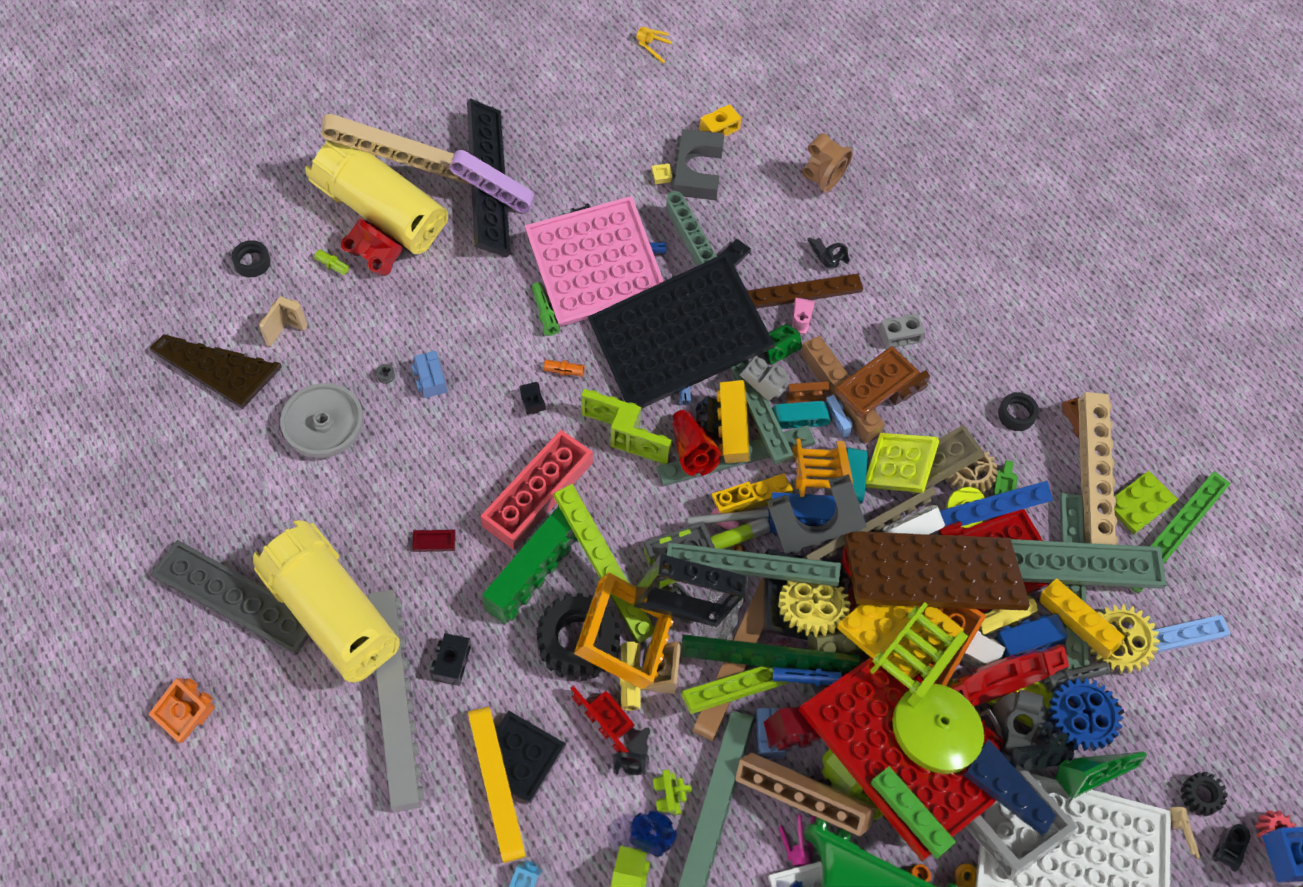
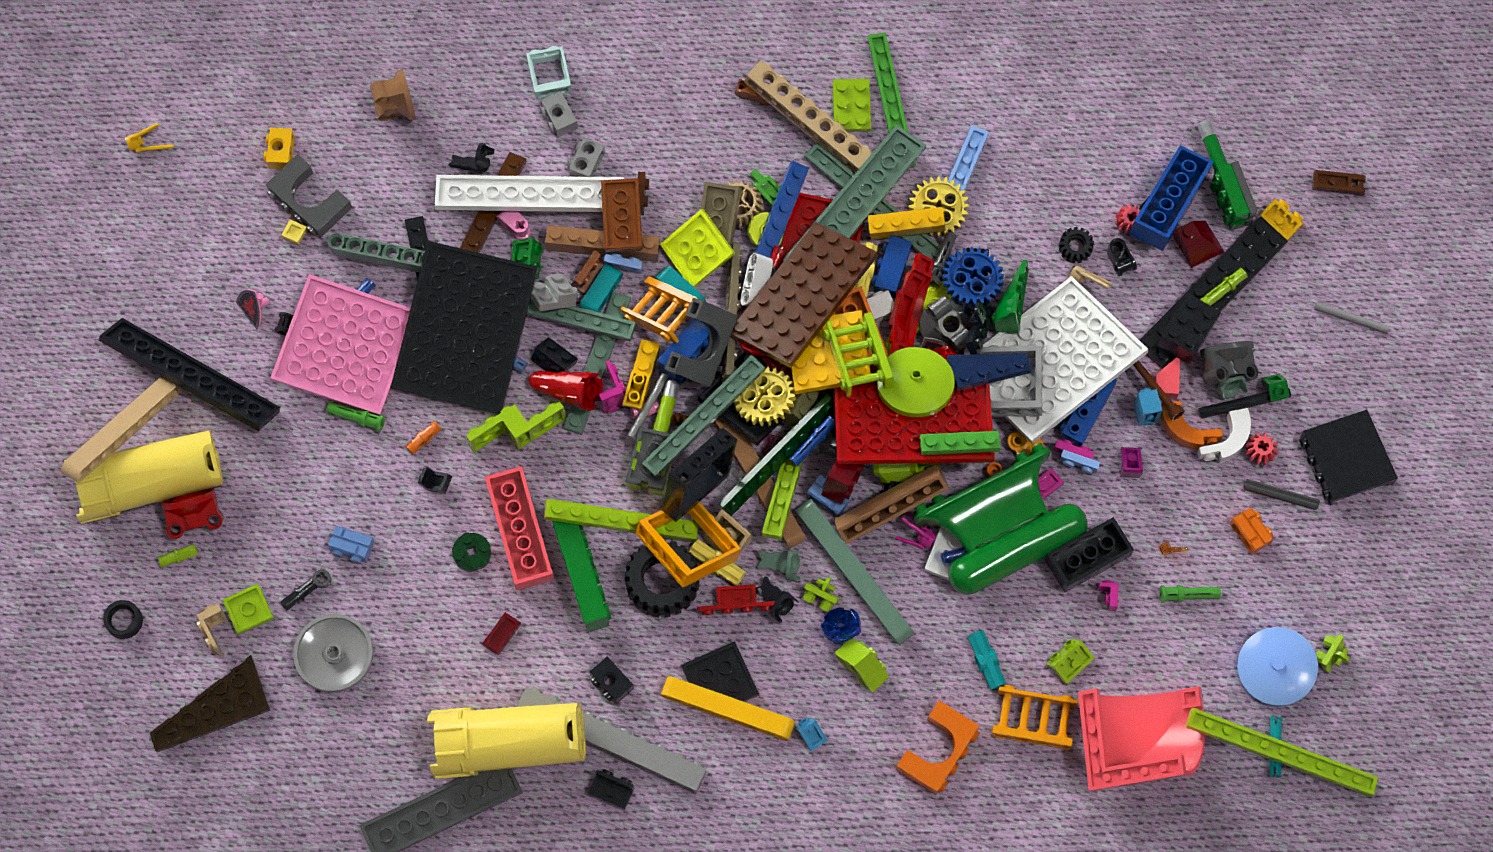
camera: 50 degrees left, 10 degrees up
(320, 337) = (248, 609): none -> lime plate
(344, 730) = (611, 789): none -> black bracket
(358, 364) = (298, 594): none -> black axle
(491, 181) = (204, 374): lavender beam -> none
(493, 458) = (477, 561): none -> dark green plate
(582, 185) = (251, 303): none -> shield
(677, 737) = (784, 561): none -> sand green hair
(711, 482) = (613, 398): none -> dark pink bracket
(734, 422) = (574, 343): yellow brick -> none
(827, 297) = (519, 193): none -> white plate
(921, 286) = (557, 104): none -> light grey brick
(939, 269) = (545, 90): none -> light aqua window
(1013, 423) = (721, 143): black tyre -> none

